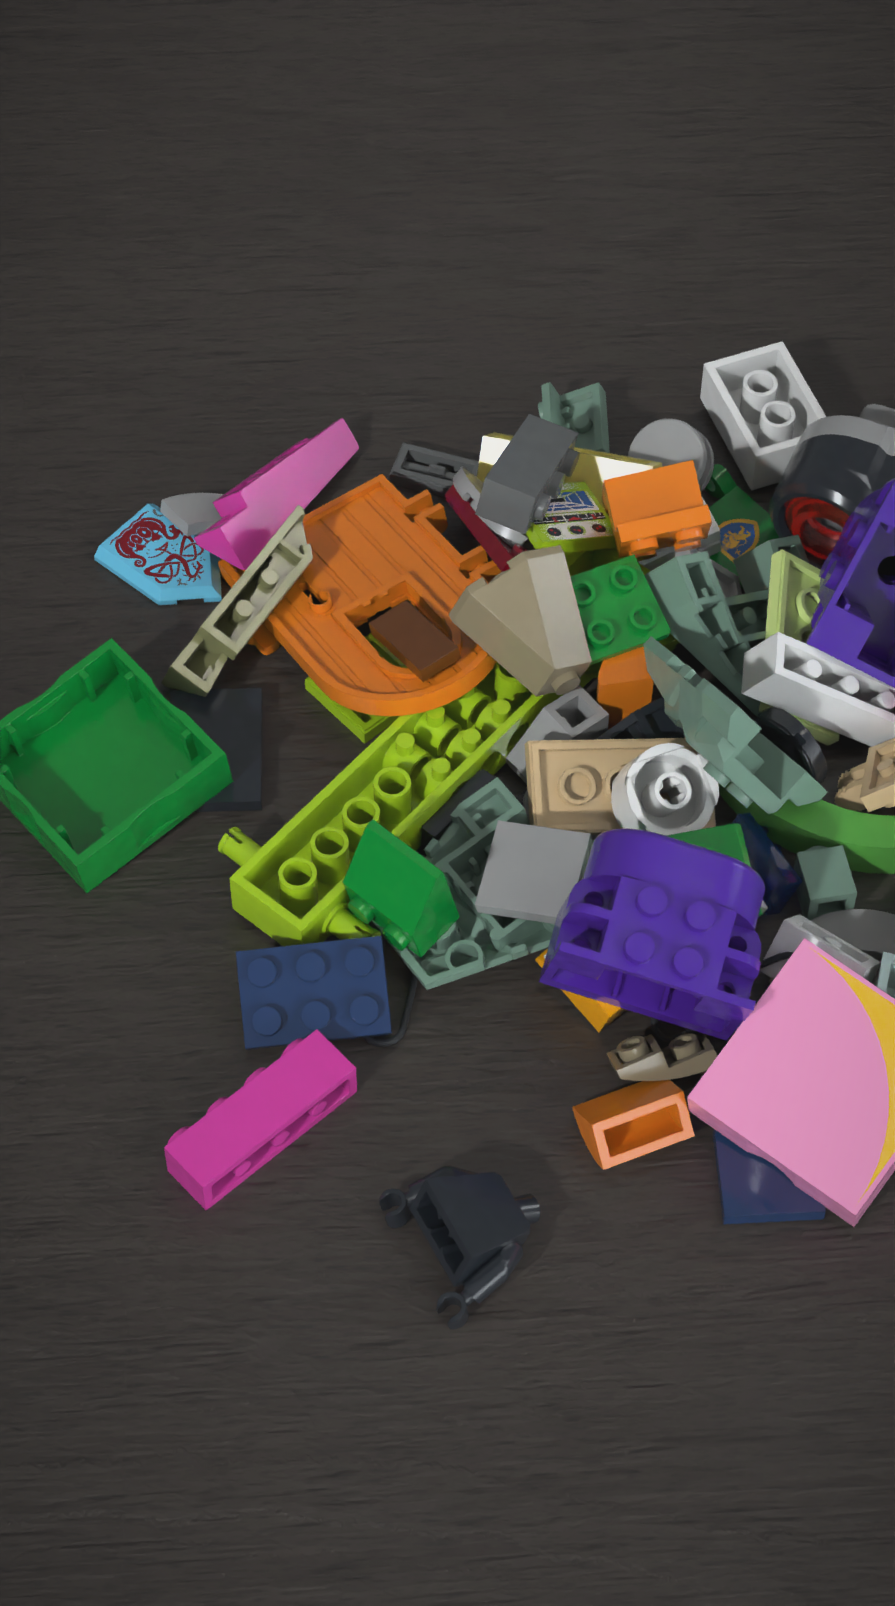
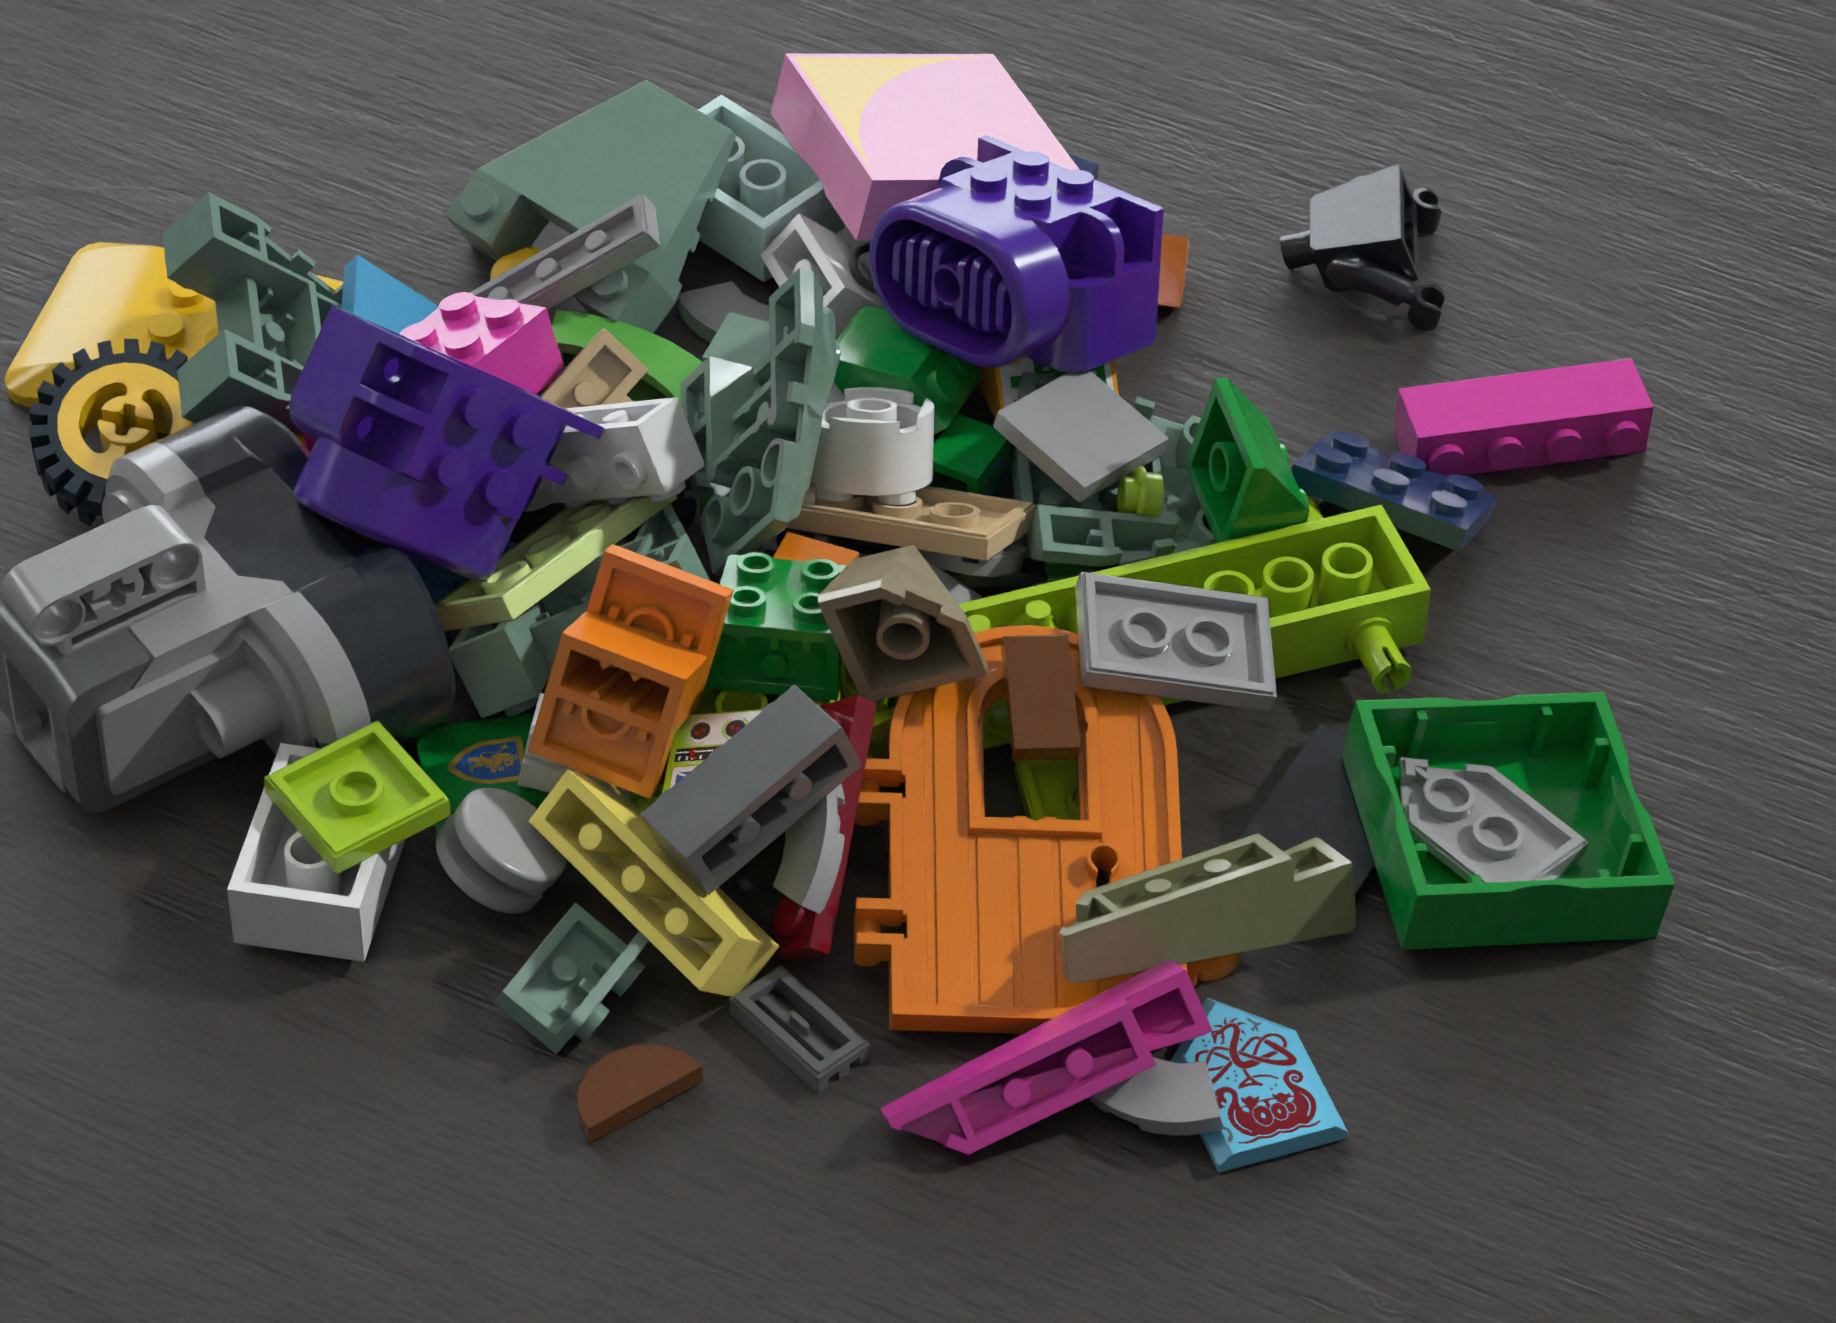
camera: 150 degrees left, 10 degrees down
(110, 757) = (1485, 824): none -> light grey tile
(360, 727) = (1175, 641): none -> light grey tile
(468, 866) = (1141, 493): none -> lime plate
(502, 398) = (631, 1084): none -> reddish brown tile
(759, 413) = (357, 796): none -> lime tile

